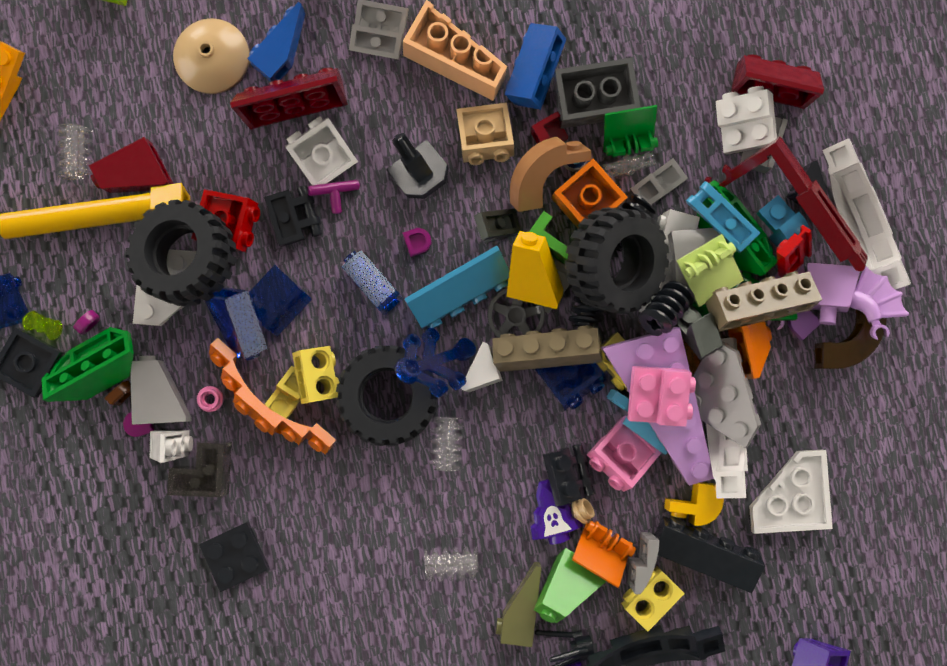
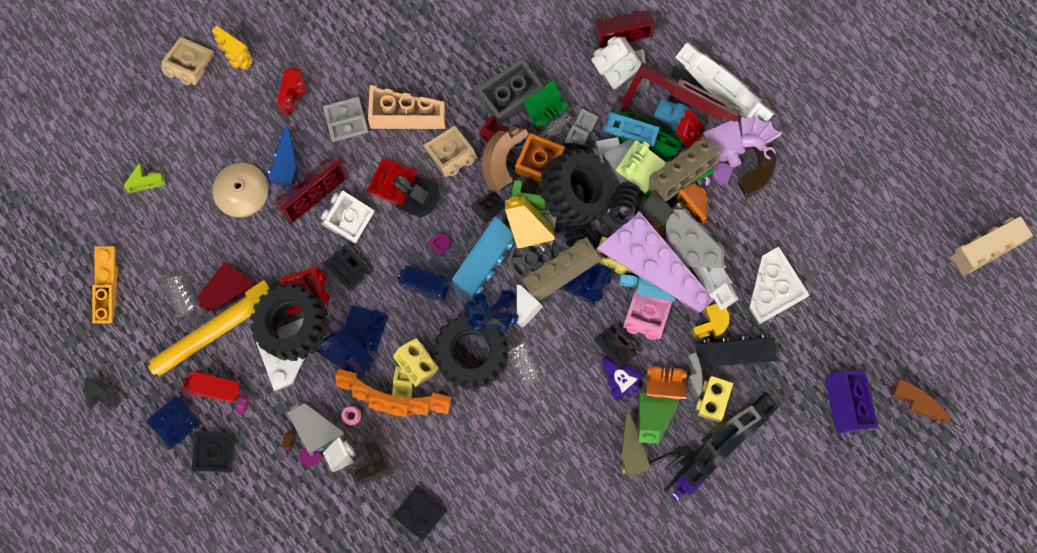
camera: 20 degrees left, 10 degrees down
(41, 324) = (211, 421): clear neon green piece -> none
(57, 284) = (210, 387): none -> red slope
(90, 367) = (262, 429): green wedge -> none
(334, 190) = (367, 236): magenta piece -> none
(393, 122) = (382, 181): none -> red slope
(451, 564) = (570, 442): clear piece -> none
(535, 66) = (462, 93): blue brick -> none
(582, 510) = (639, 364): tan plate -> none
(660, 395) = (648, 259): bright pink plate -> none

